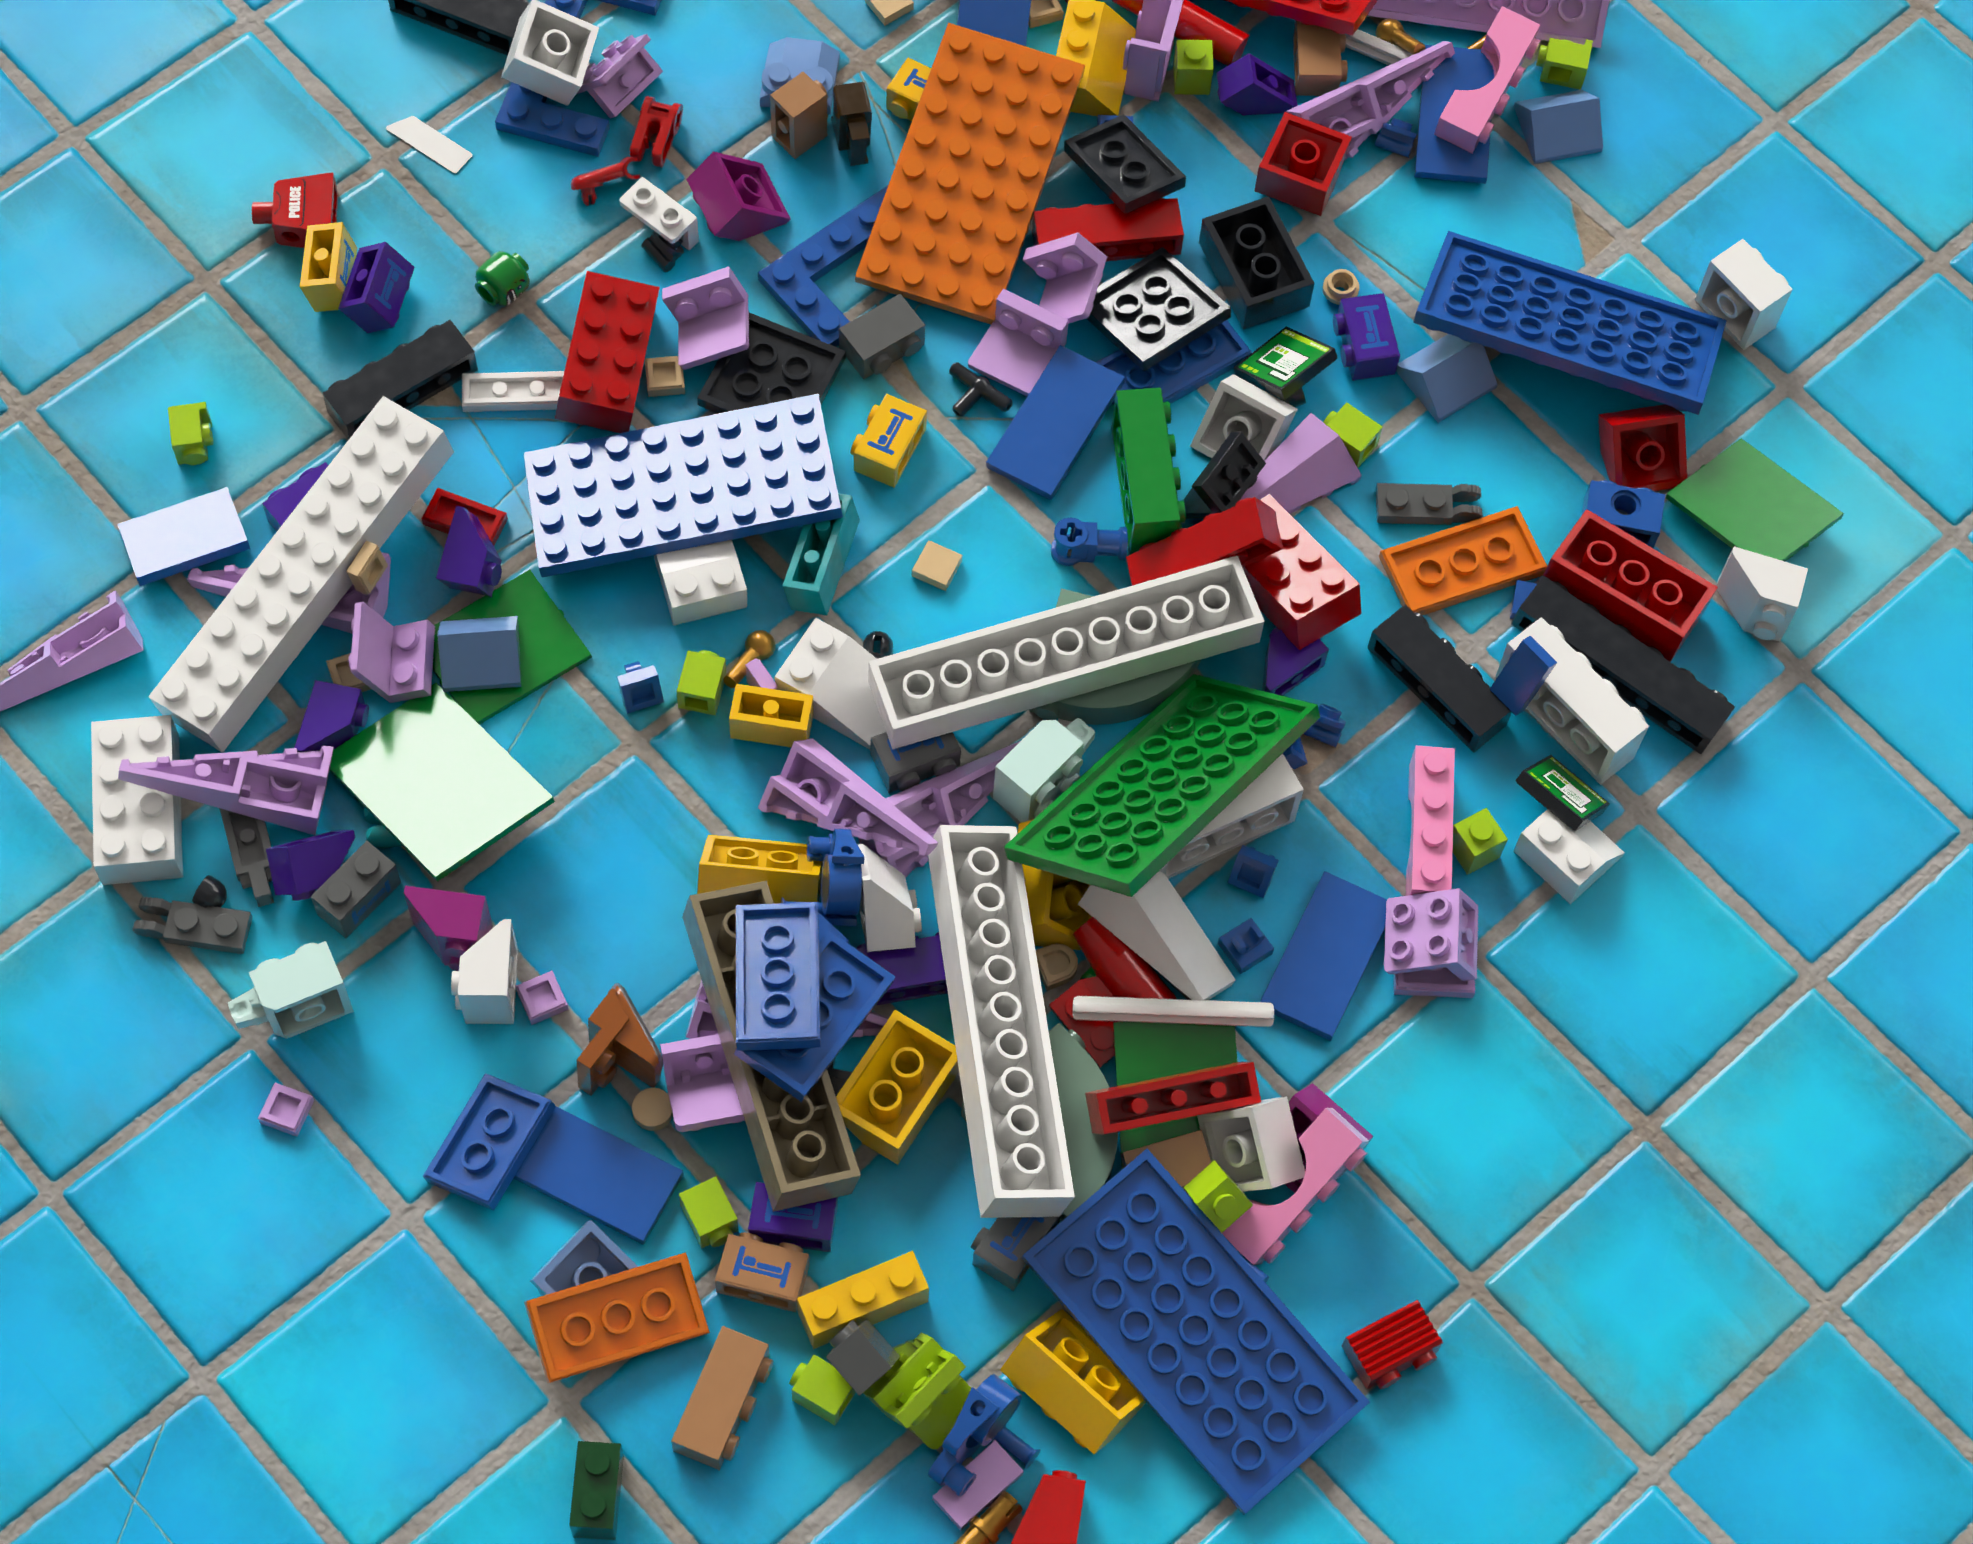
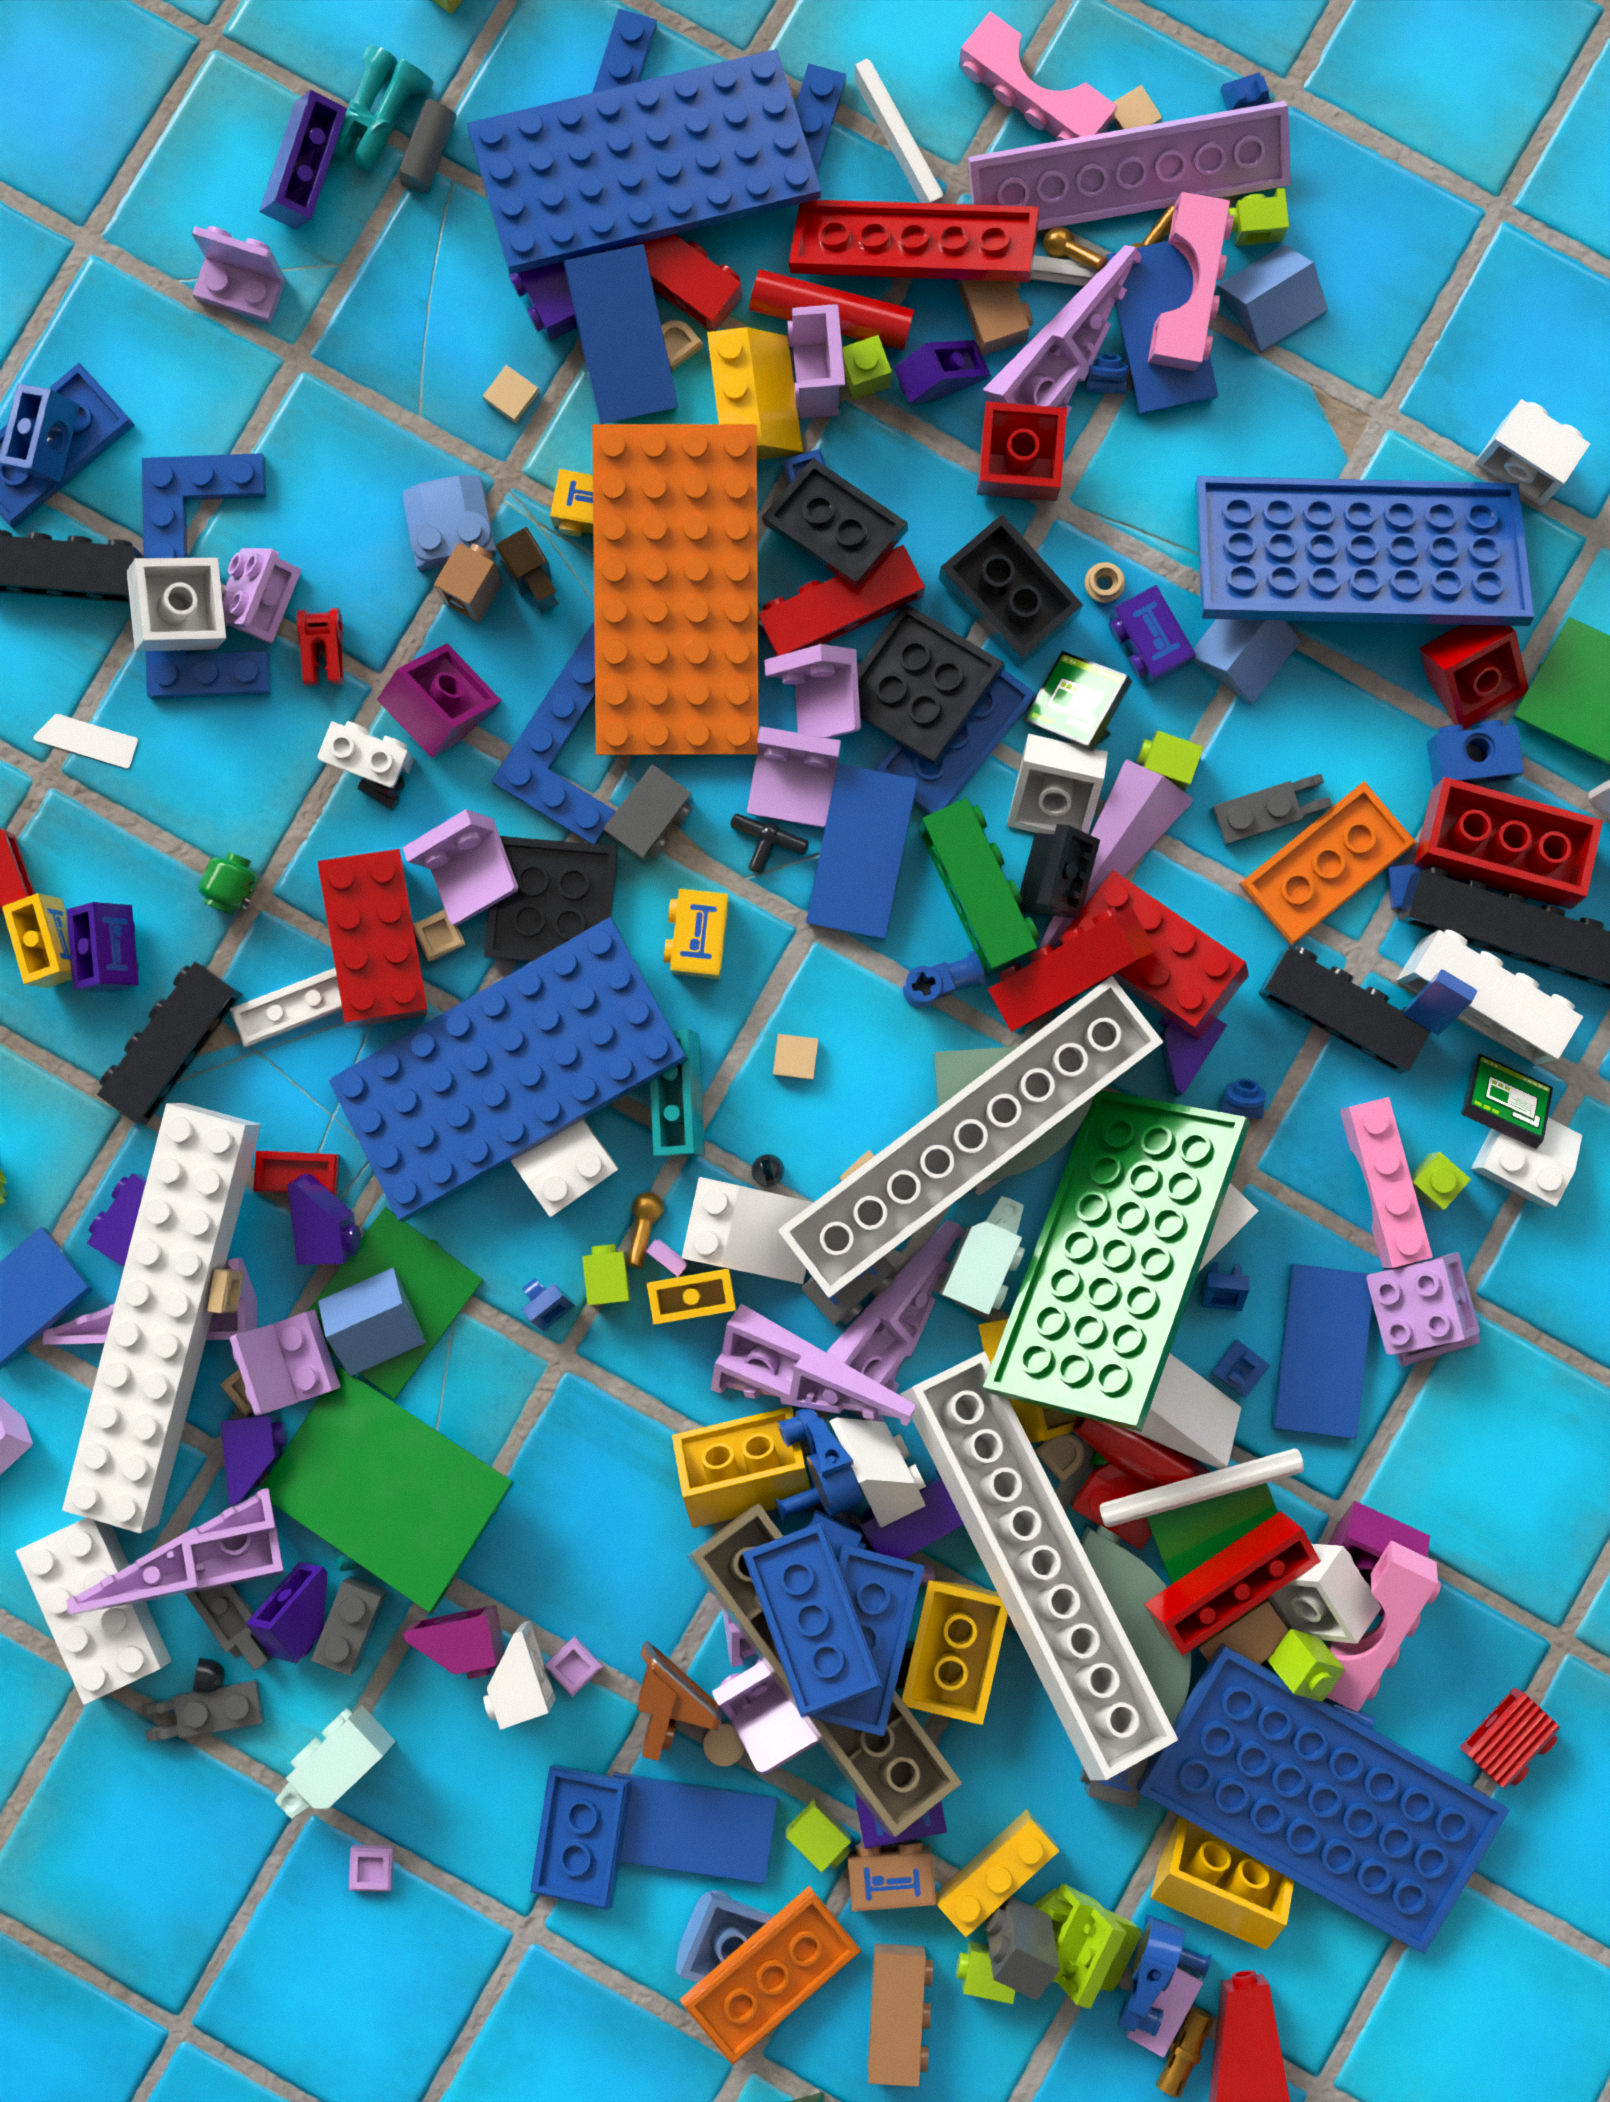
camera: 15 degrees left, 20 degrees up
(588, 181) = (278, 730): red piece -> none

